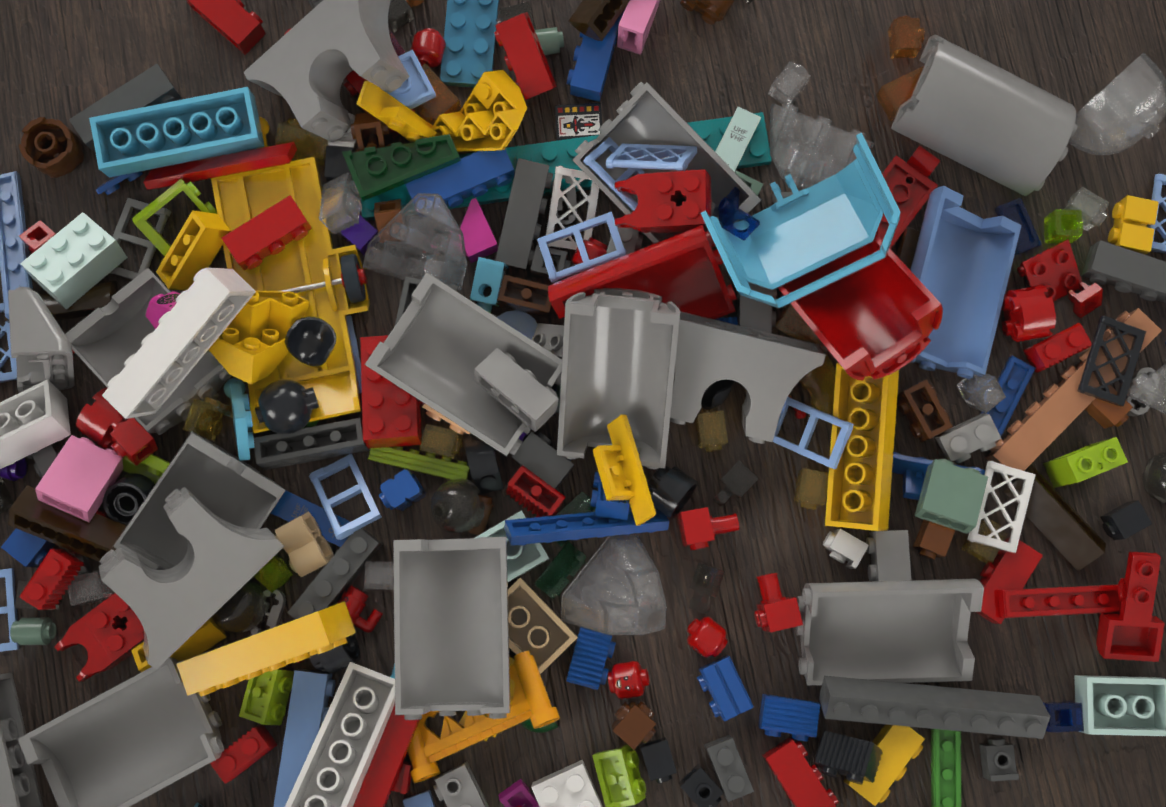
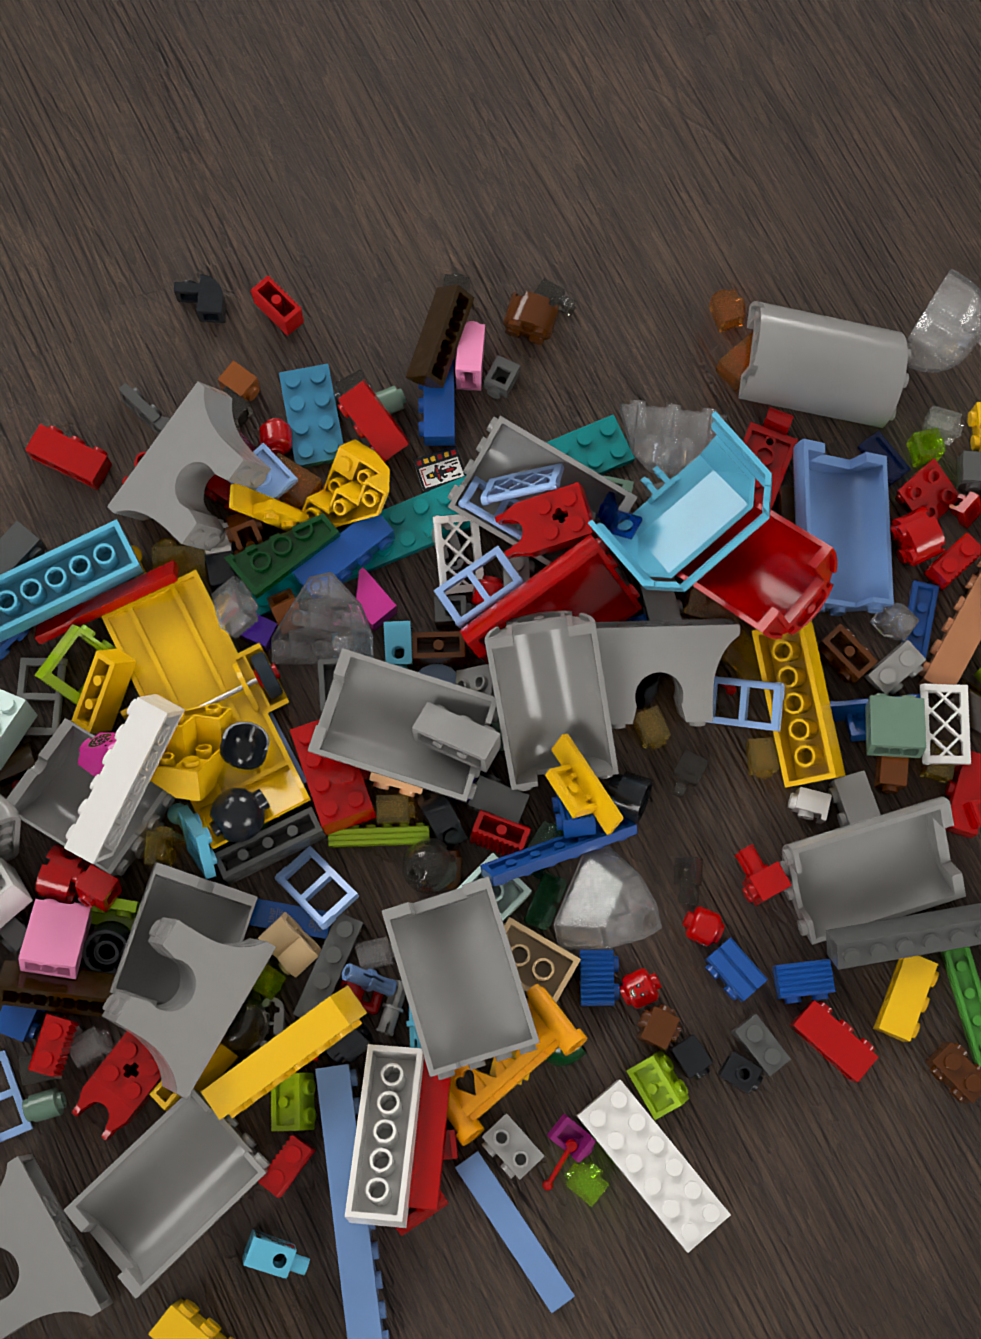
camera: 15 degrees left, 5 degrees down
(267, 233) = (173, 654): red brick -> none
(369, 599) = (369, 980): none -> medium blue pin
(382, 636) = (392, 1010): none -> light grey axle
(401, 491) = (371, 866): blue brick -> none
(522, 214) = (413, 570): dark grey brick -> none
(667, 40) = (501, 370): none -> dark grey brick
(699, 527) = (667, 822): red brick -> none
(737, 137) = (596, 443): light aqua tile -> none
(789, 83) = (631, 381): clear brick -> none
(848, 757) = (870, 1001): black brick -> none

